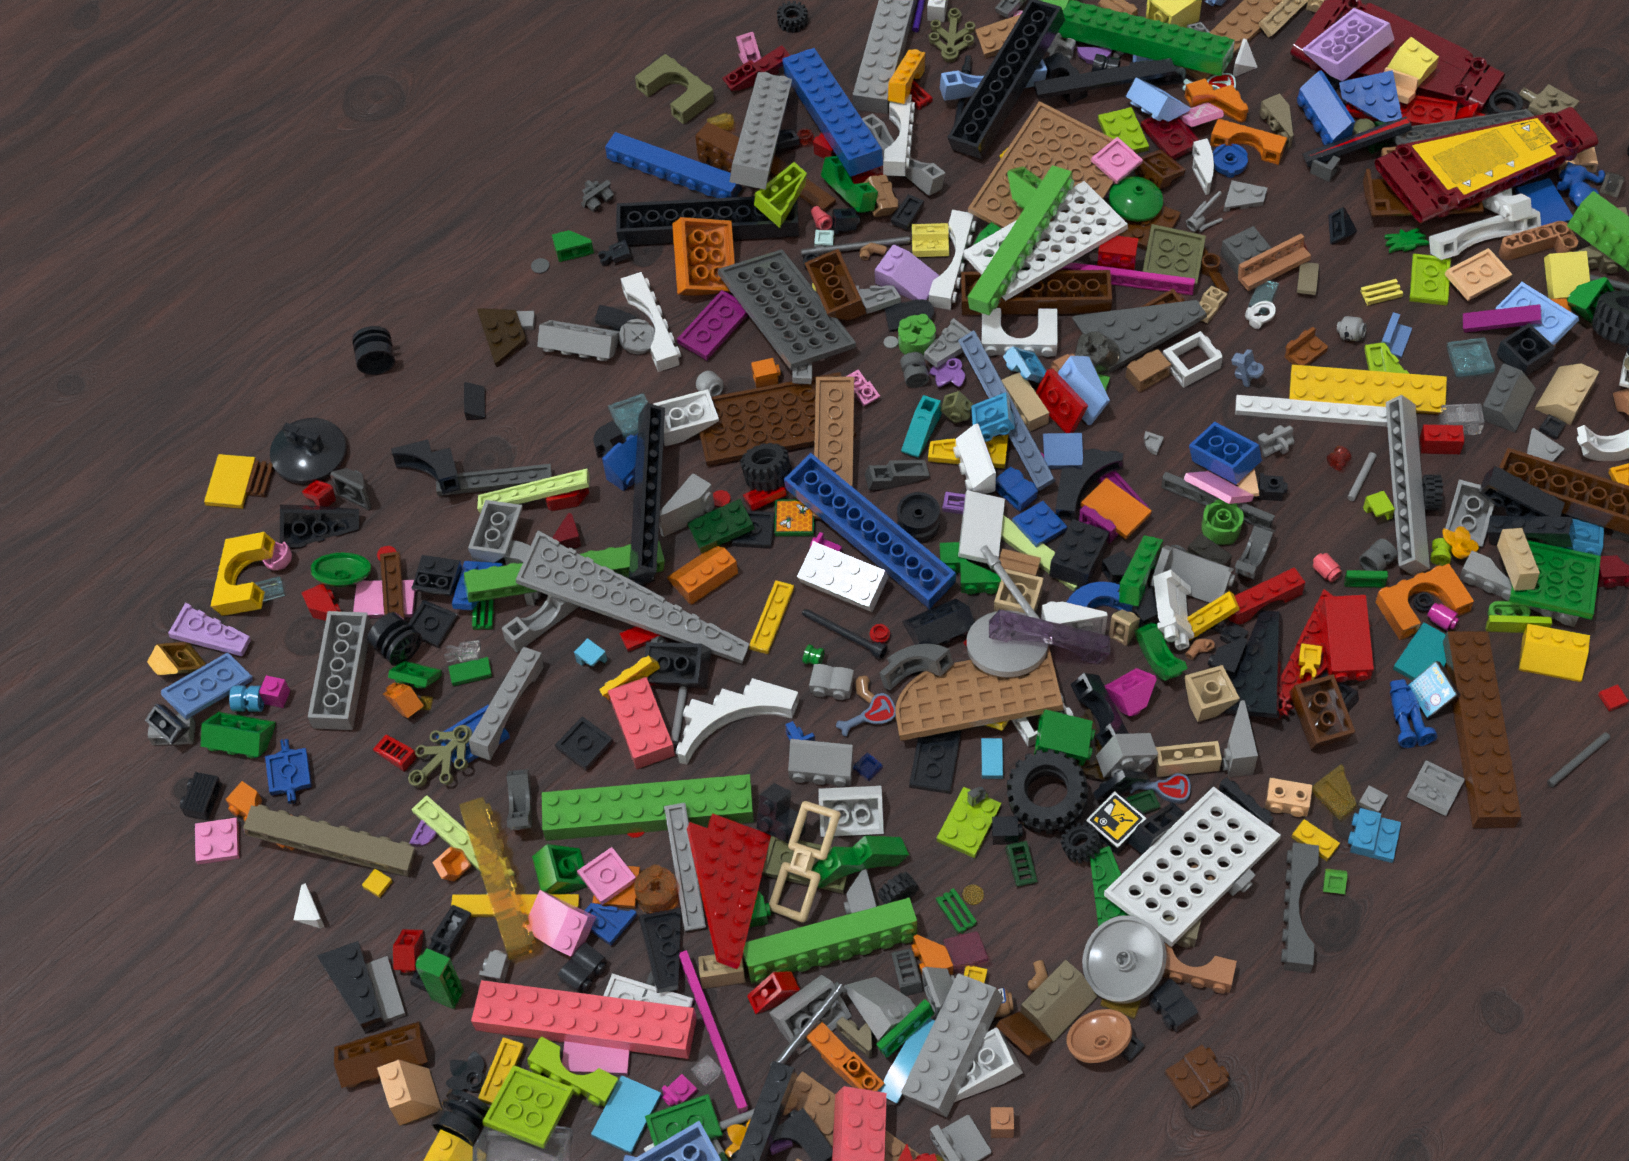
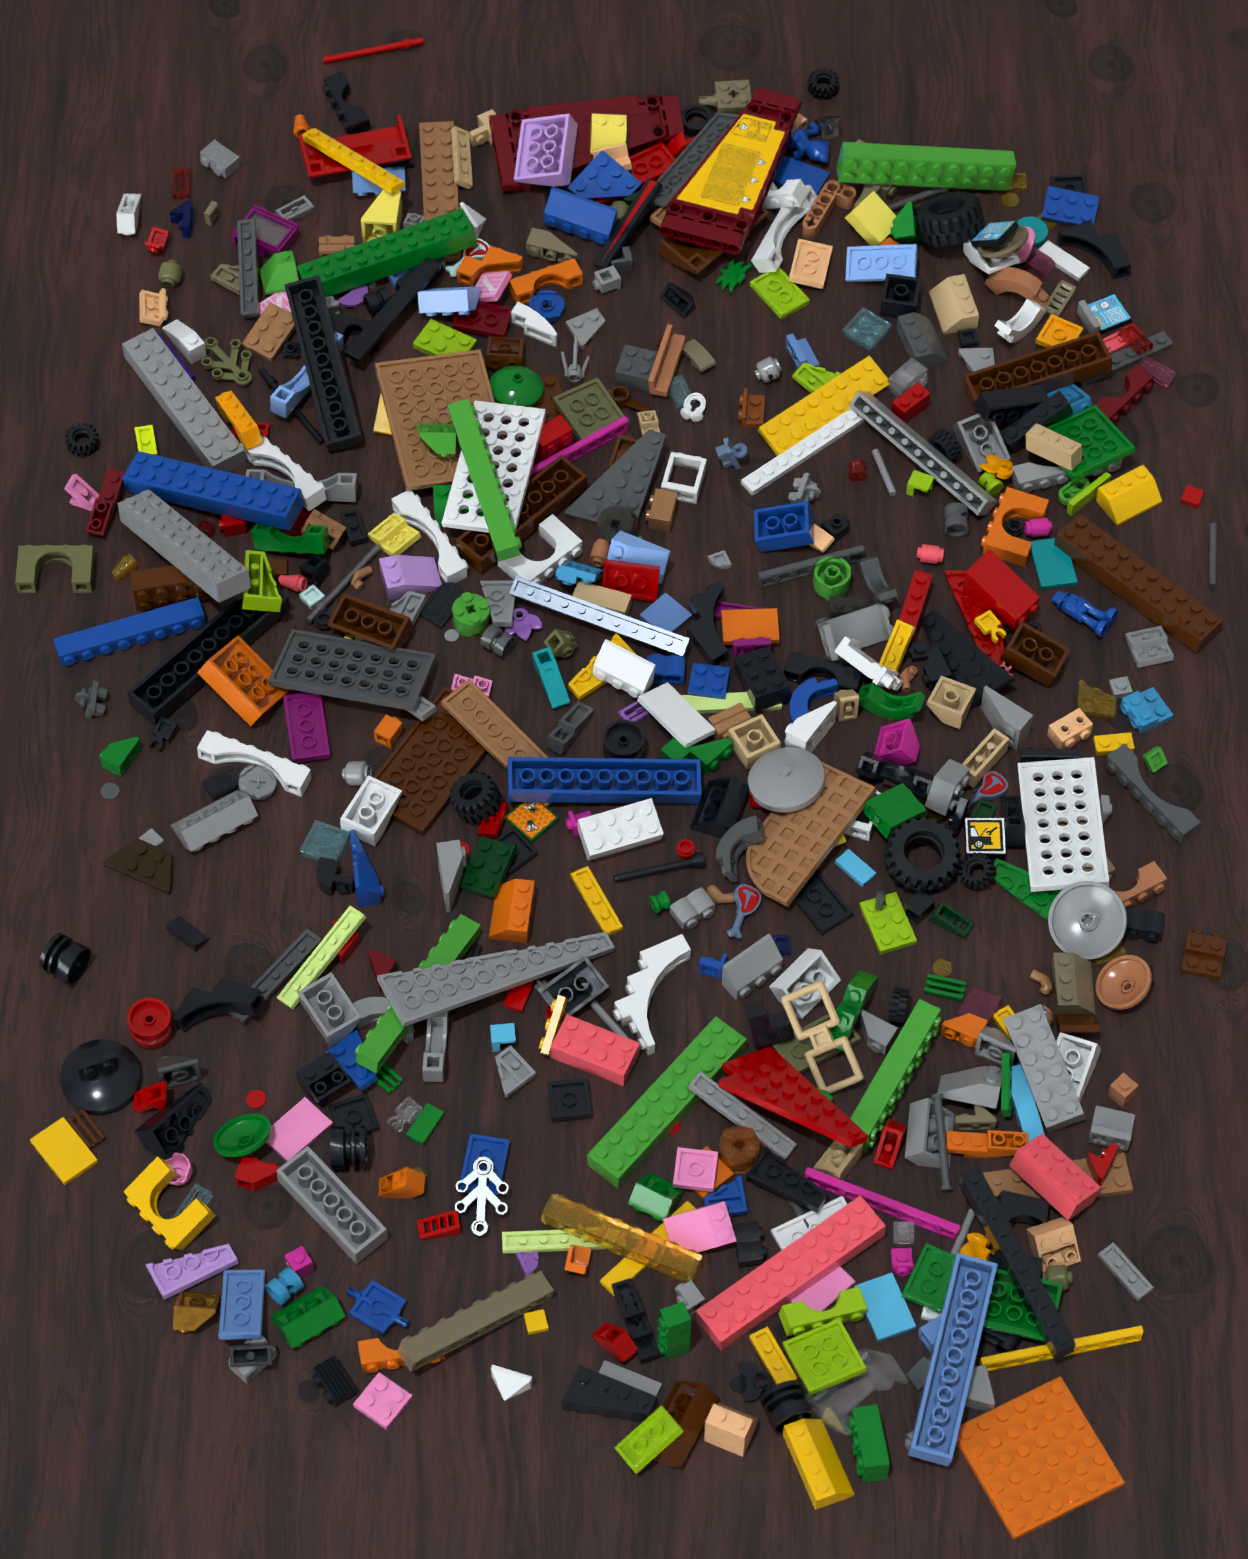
camera: 50 degrees left, 0 degrees up
(340, 1044) = (649, 1439): none -> lime tile
(374, 440) = (150, 1023): none -> red wheel
(392, 583) = (295, 1115): reddish brown tile -> none
(415, 674) = (392, 1158): green plate -> none
(489, 730) = (491, 1127): light grey arch -> none
(519, 799) = (573, 1177): dark grey arch -> none
(570, 688) = (513, 1071): none -> light grey wing
(647, 493) = (419, 884): black brick -> none
(833, 48) = (146, 439): none -> neon yellow plate
(908, 985) = (968, 1060): dark grey slope -> none
(993, 416) = (598, 626): dark azure plate -> none
(995, 564) = (719, 730): light grey bar -> none
(1012, 626) = (790, 760): clear purple arch -> none
(1117, 160) = (478, 367): bright pink tile -> none
(1135, 578) = (816, 648): green arch -> none
(1218, 487) = (805, 554): bright pink tile -> none
(1297, 172) = (607, 279): none -> light grey brick
(1360, 578) = (963, 541): green tile -> none
(1380, 290) = (758, 314): light yellow tile -> none
(1434, 690) = (1086, 580): tile -> none
(1502, 318) = (861, 284): magenta tile -> none

